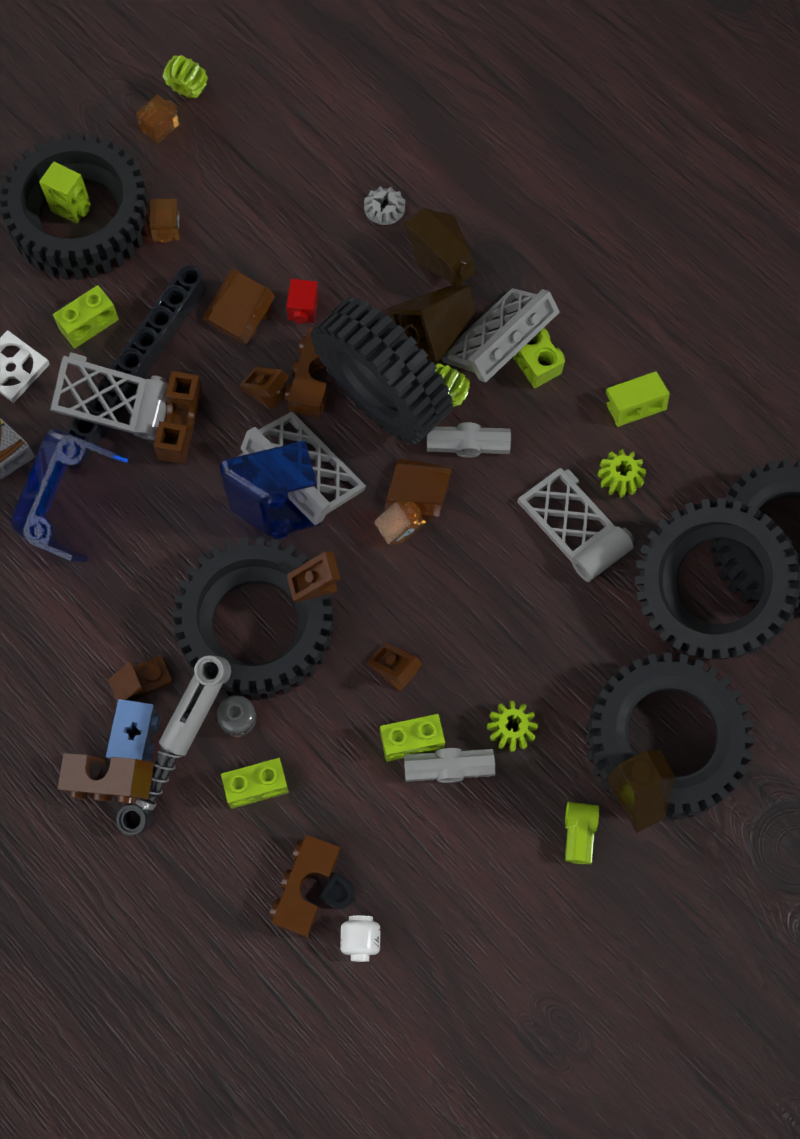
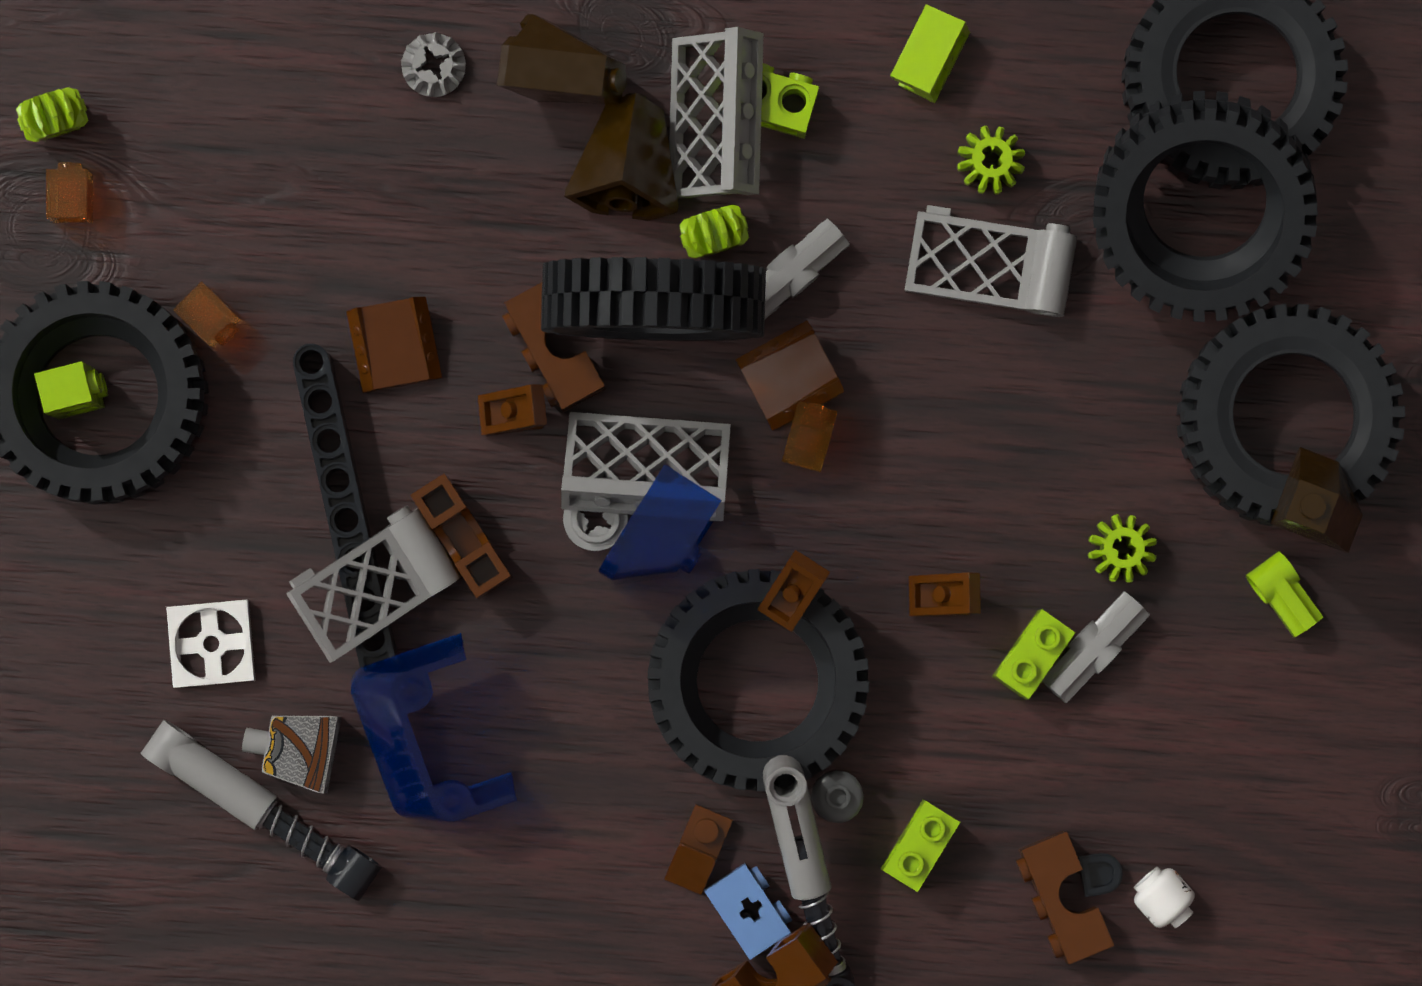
camera: 40 degrees left, 15 degrees up
(86, 316) = (240, 513): lime brick -> none
(302, 301) = (459, 273): red brick -> none

